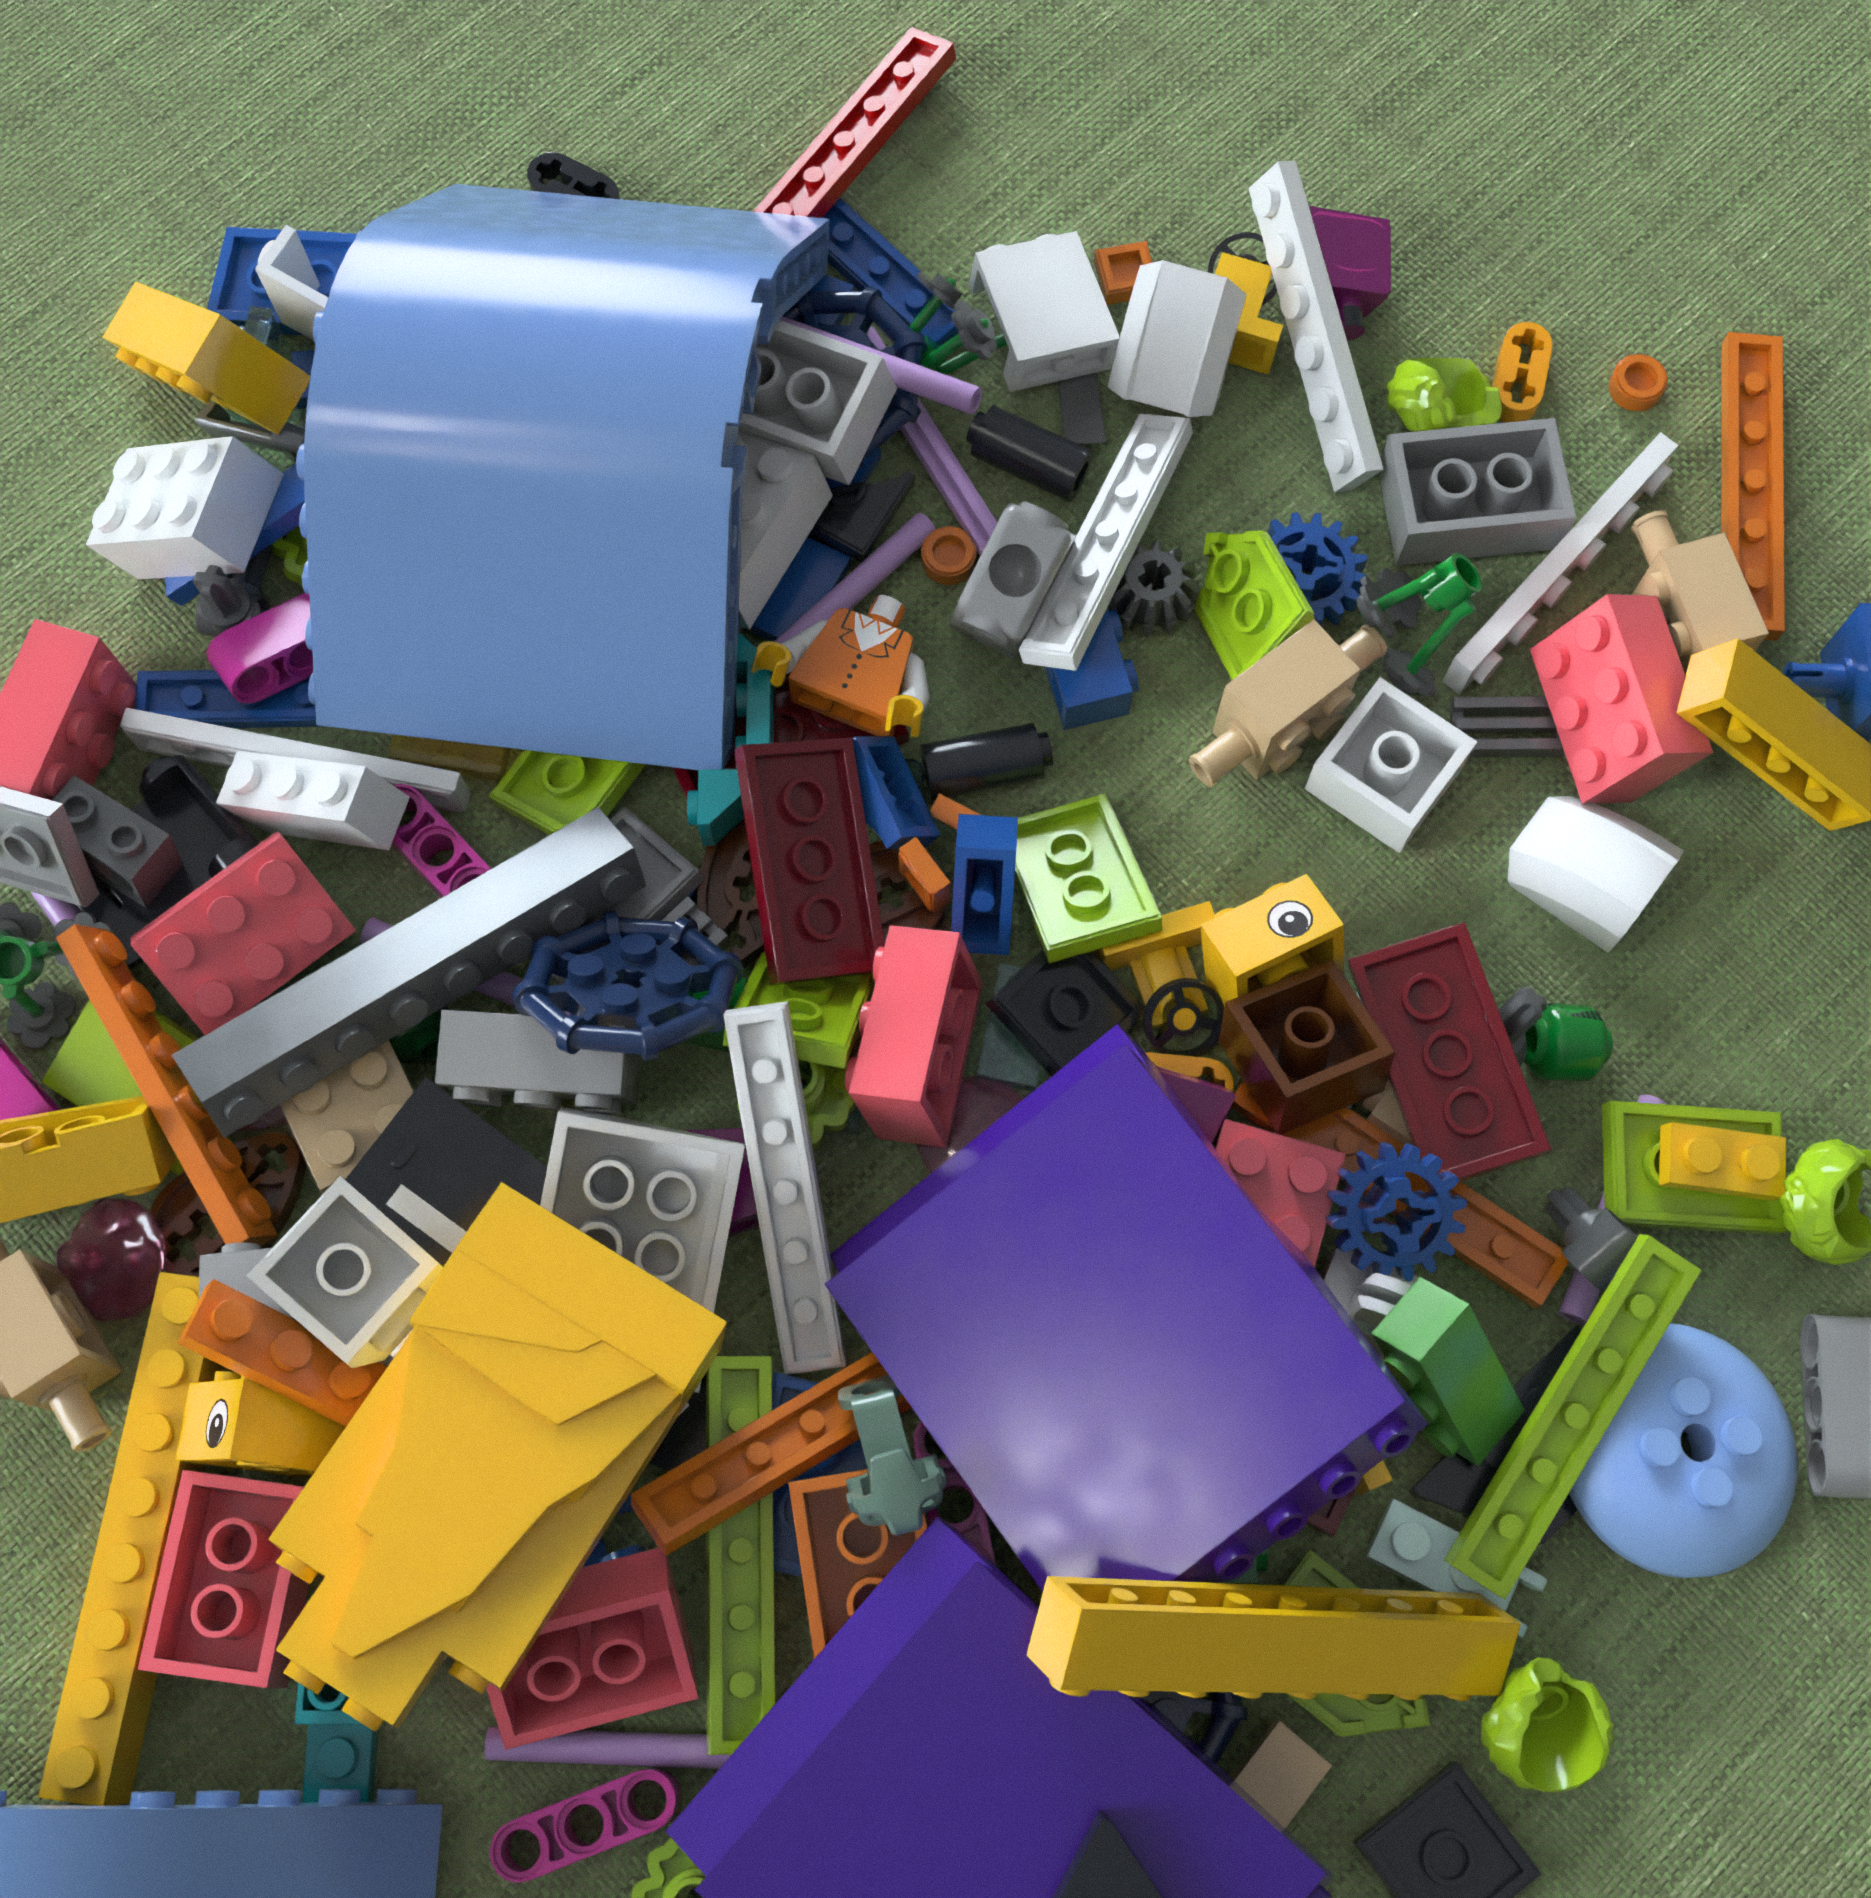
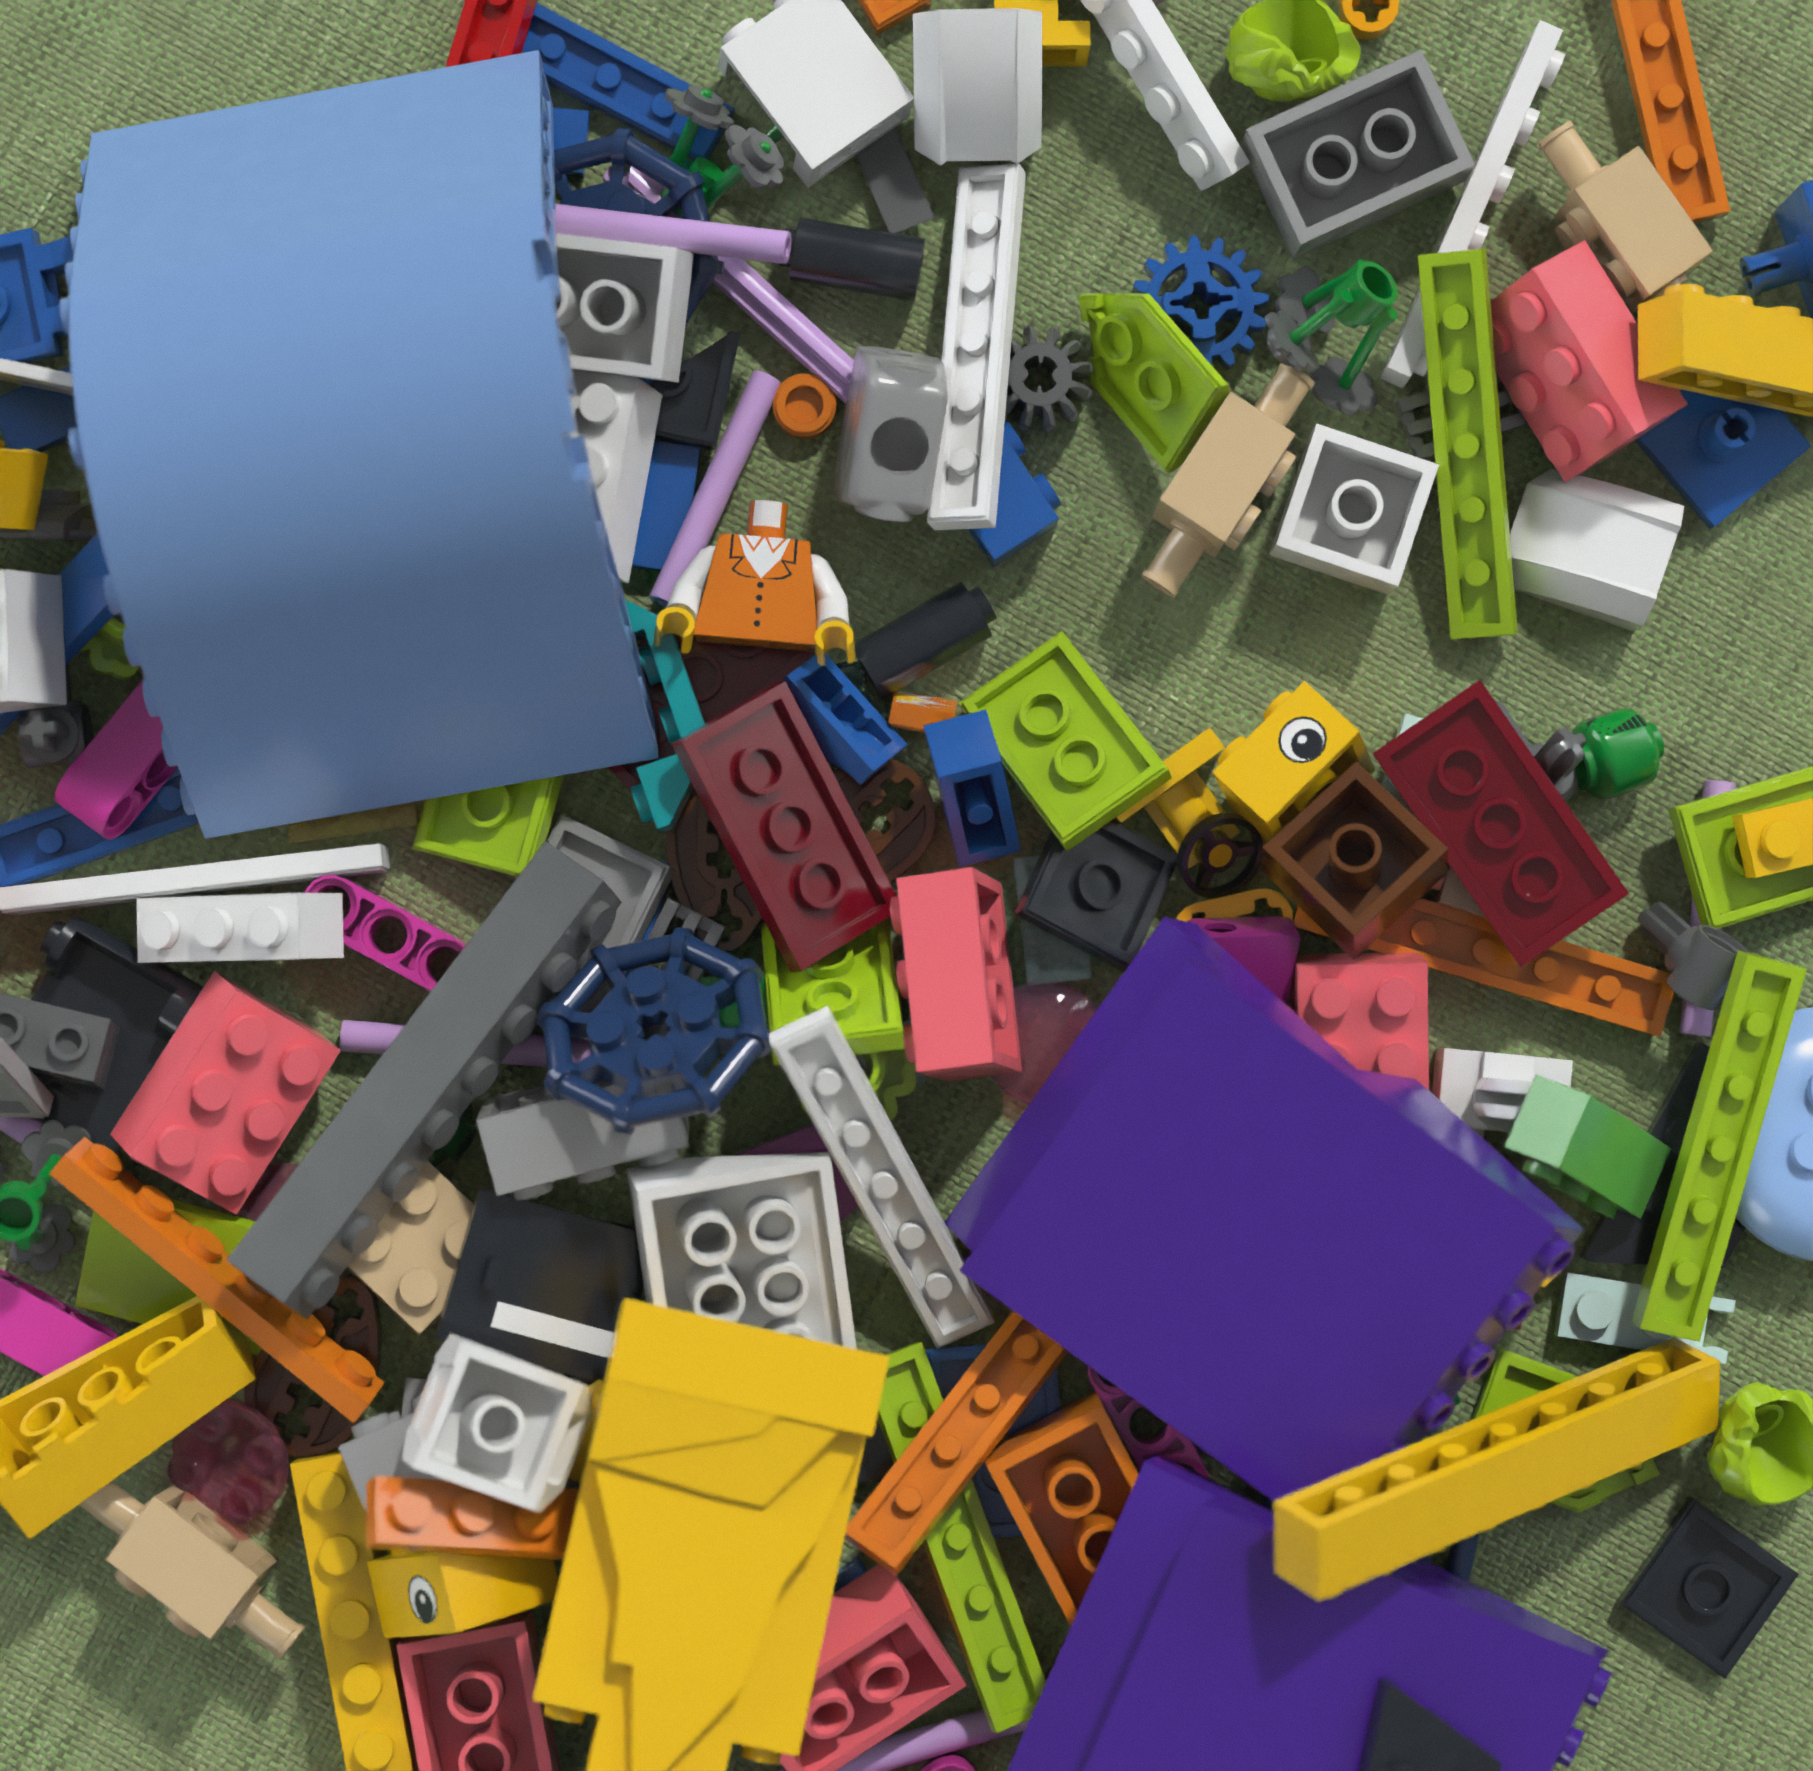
camera: 20 degrees left, 15 degrees up
(576, 177) = (218, 71): black beam -> none
(895, 1486) = (1092, 1438): sand green piece -> none
(924, 875) = (906, 797): orange tile -> none
(1280, 1771) = (1530, 1567): tan brick -> none
(1403, 1237) = (1520, 1000): blue gear -> none
(1506, 740) = (1468, 443): none -> lime plate
(1726, 819) = (1721, 452): none -> blue tile

